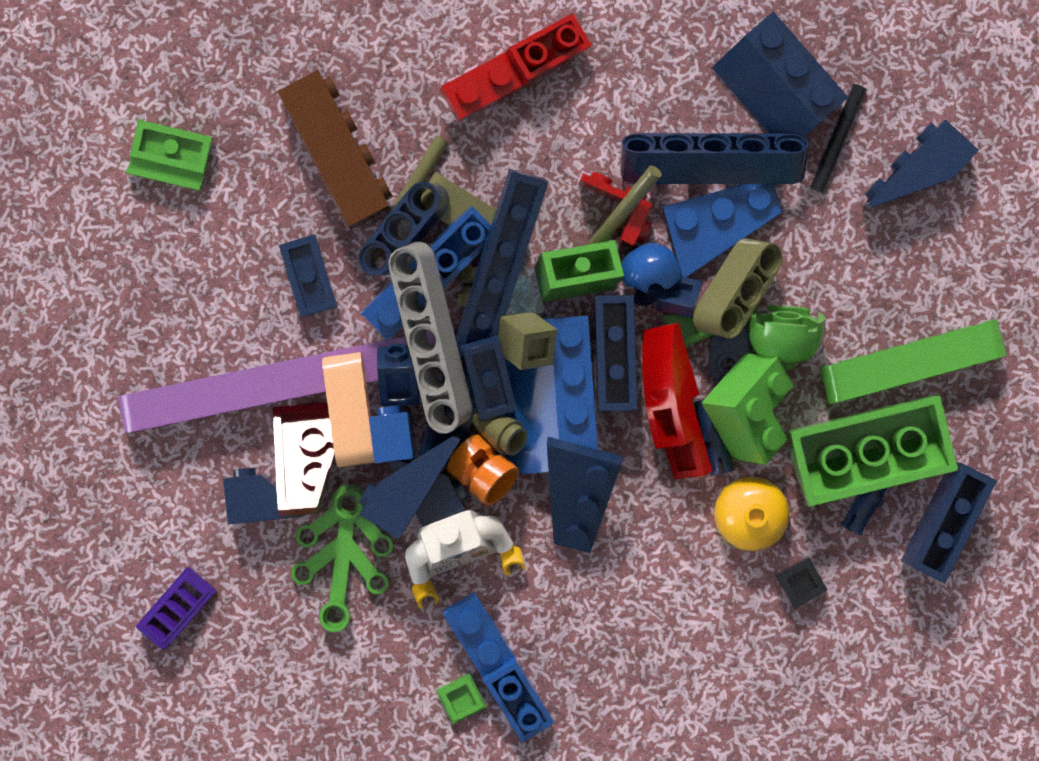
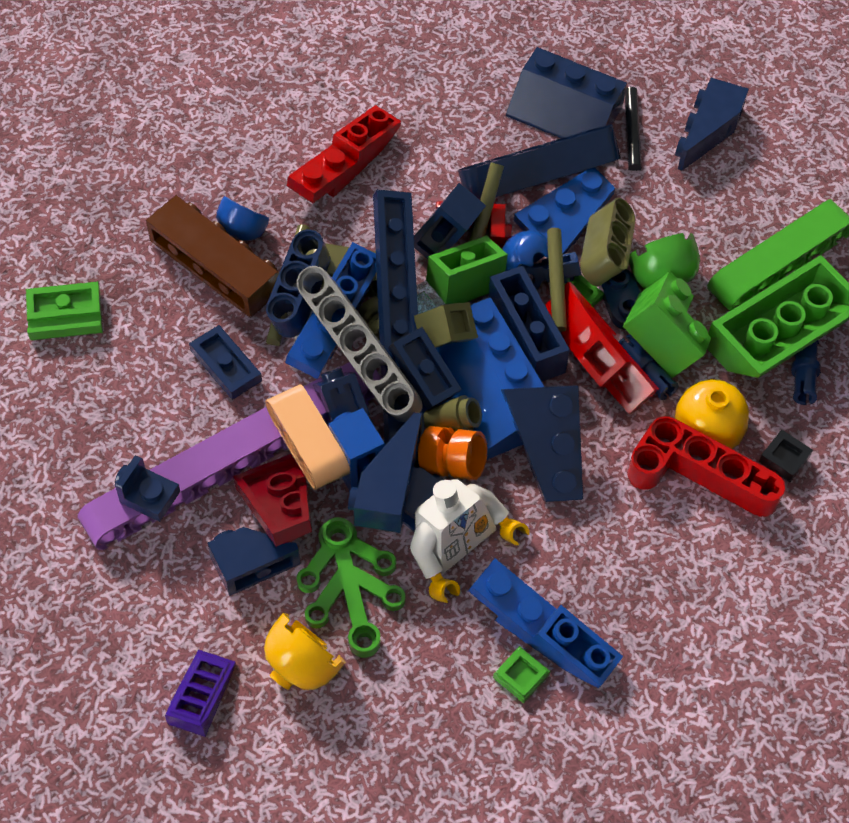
camera: 20 degrees left, 30 degrees down
(182, 407) = (145, 490): none -> dark blue bracket
(270, 615) = (299, 656): none -> yellow cylinder
(372, 118) = (240, 221): none -> blue hair
(584, 208) = (448, 222): none -> dark blue slope
(662, 320) = (556, 276): none -> olive bar
(720, 572) = (706, 472): none -> red beam

